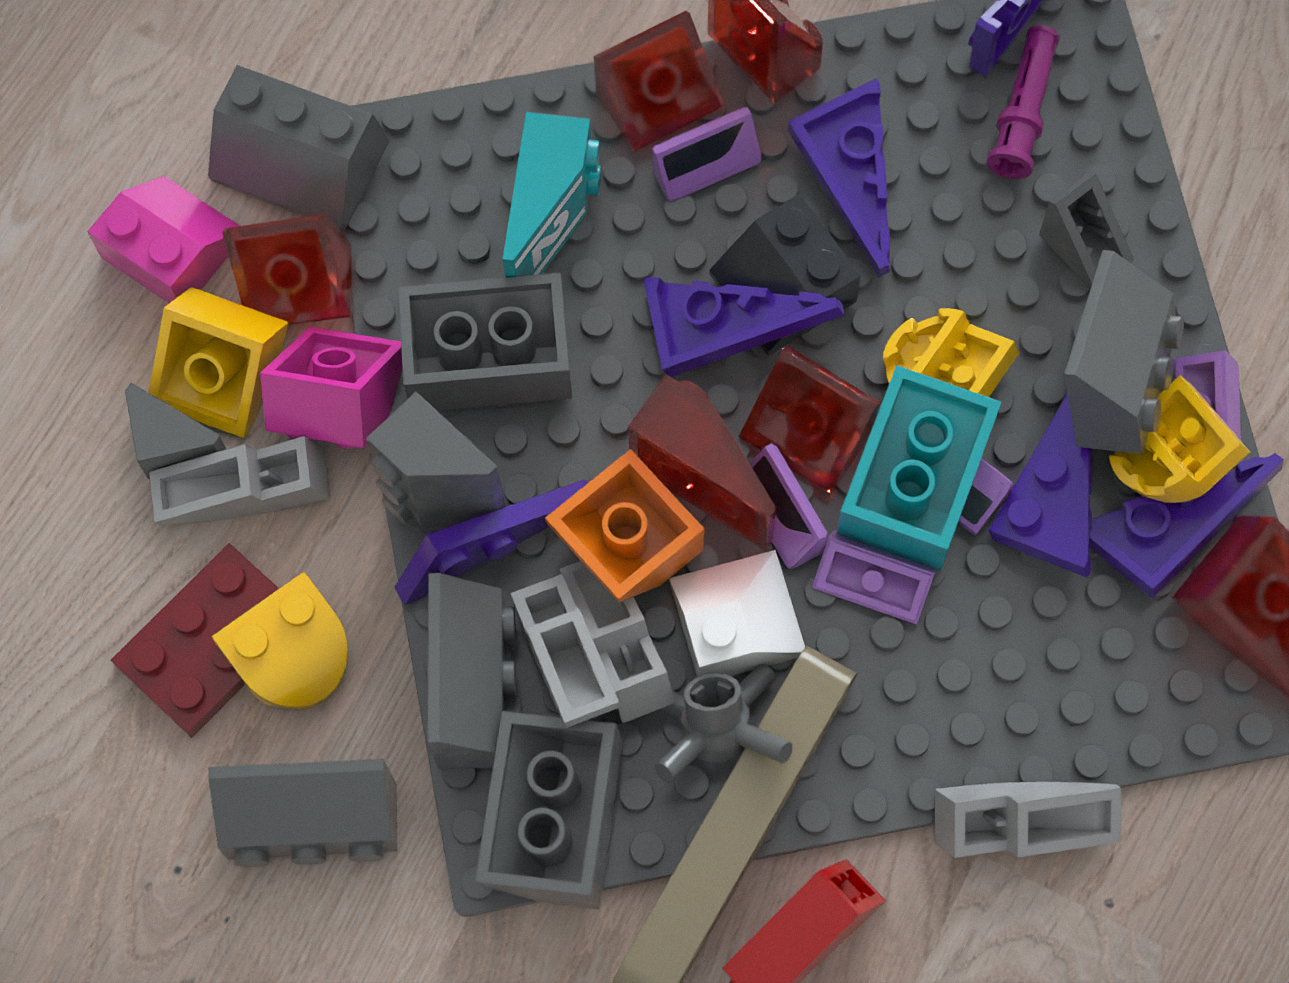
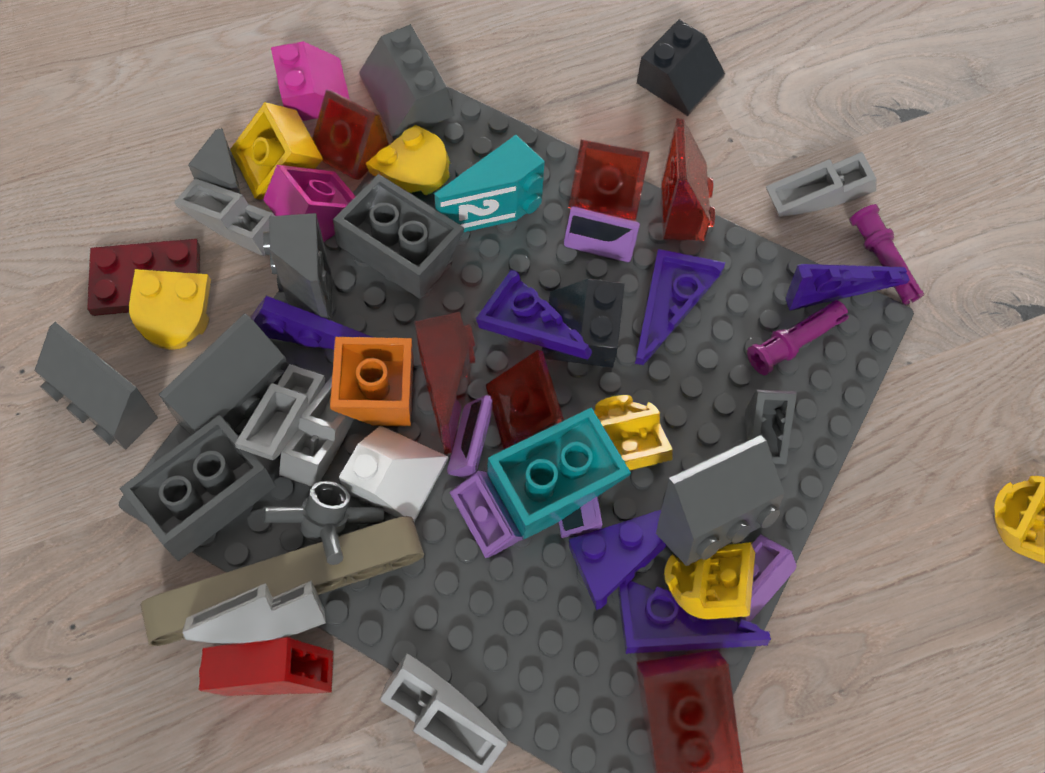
camera: 35 degrees right, 5 degrees down
(402, 239) = (413, 161): none -> yellow slope
(761, 879) = (257, 616): none -> light grey slope

